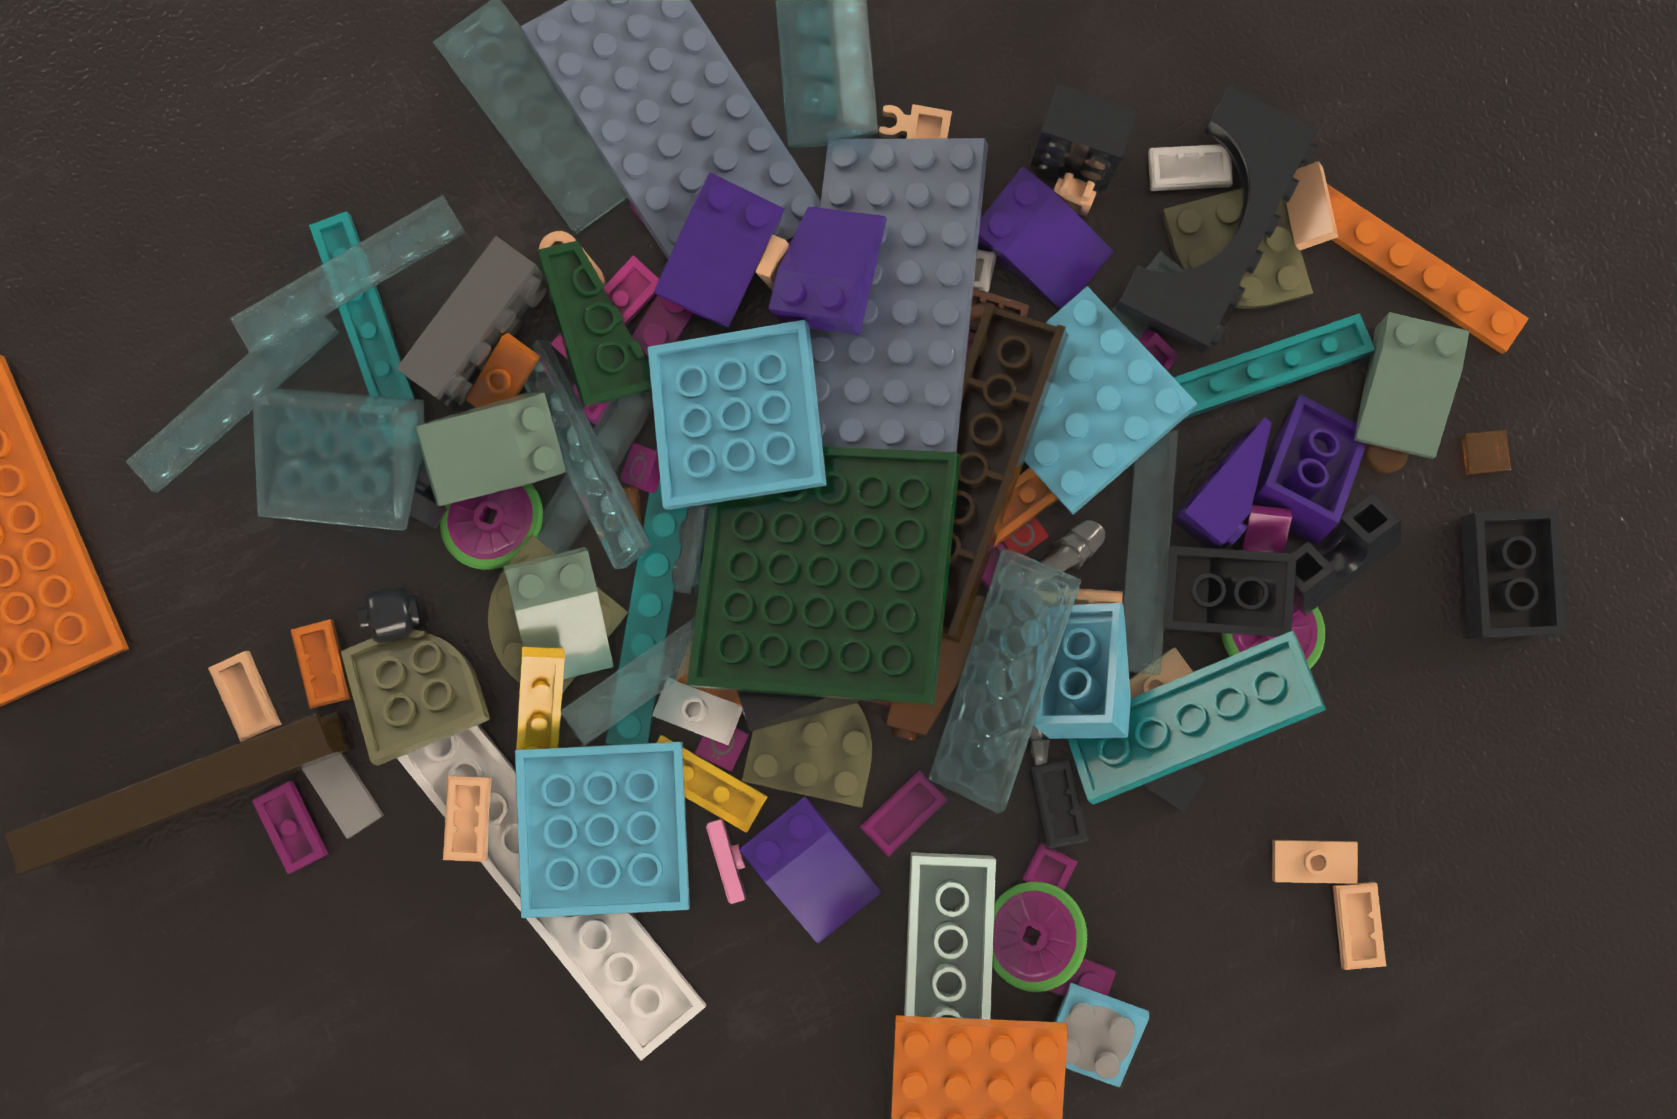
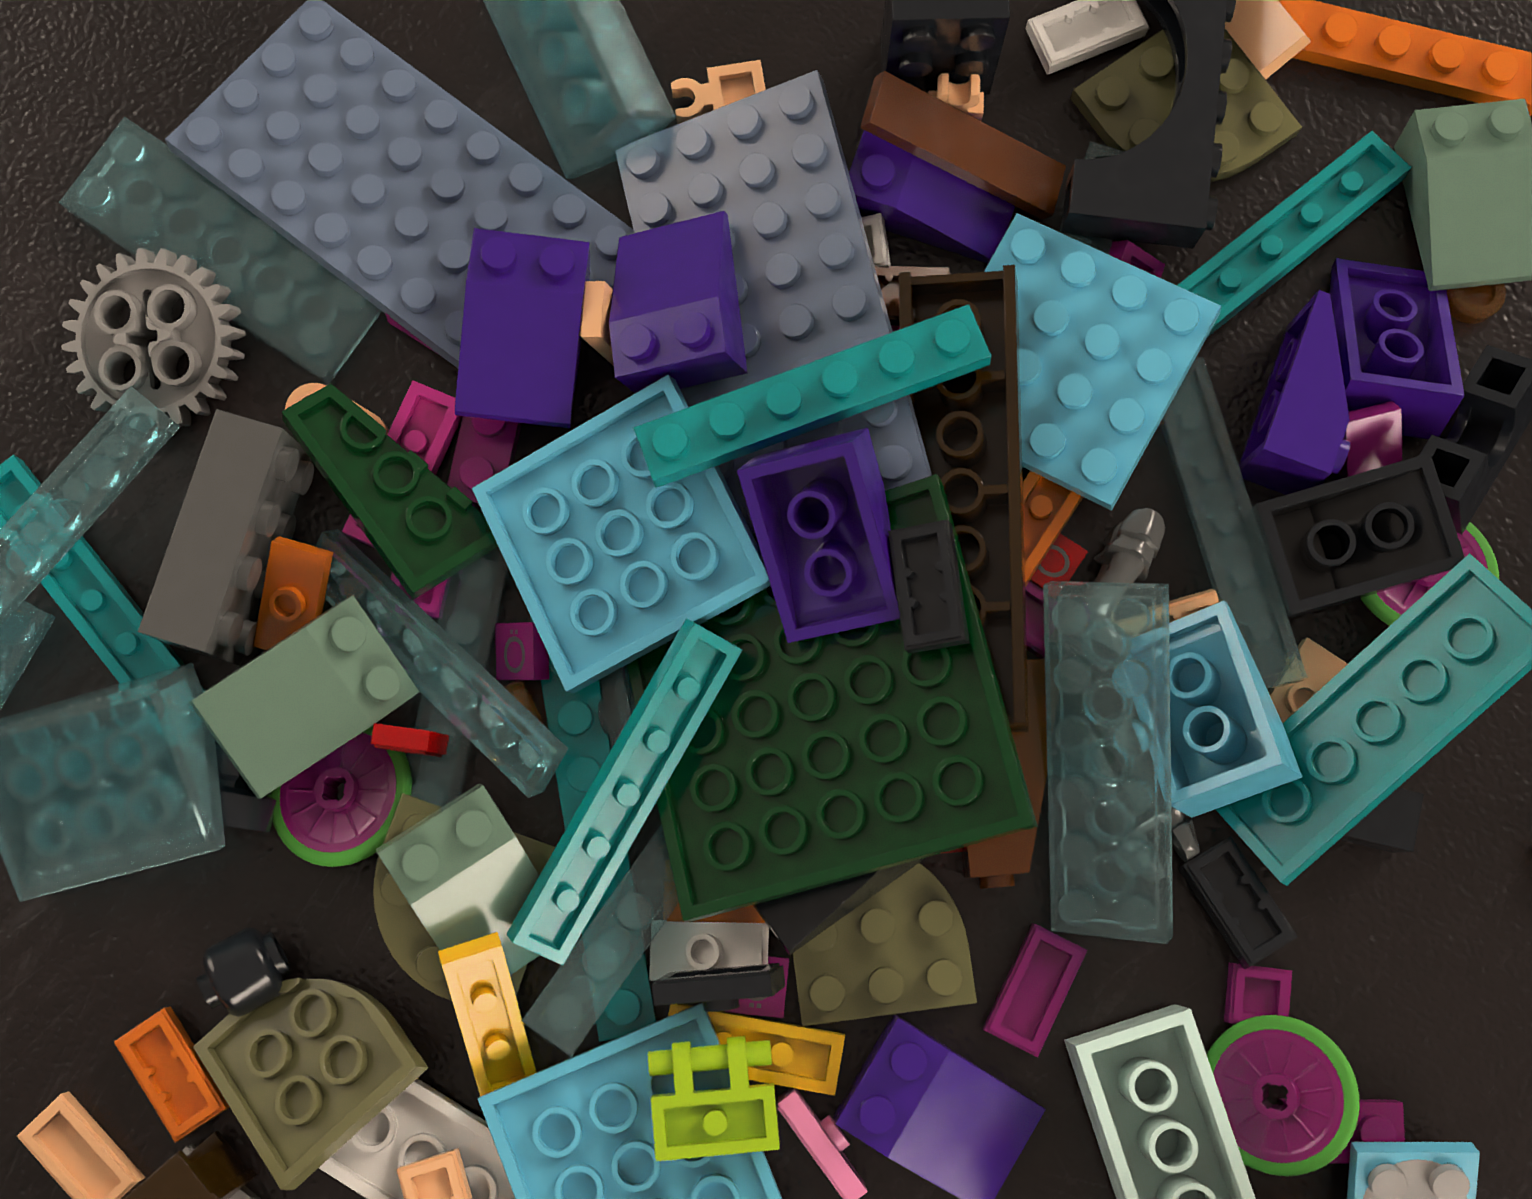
camera: 20 degrees left, 5 degrees down
(500, 172) = (200, 332): none -> light grey gear
(549, 502) = (409, 740): none -> red tile
(664, 818) = (713, 1119): none -> lime plate
(678, 587) = (623, 793): none -> teal plate
(695, 735) = (719, 987): none -> black plate
(868, 465) = (823, 534): none -> dark purple slope
(894, 369) = (812, 395): none -> teal plate
(921, 525) = (928, 586): none -> black plate
(1067, 226) = (962, 145): none -> reddish brown tile

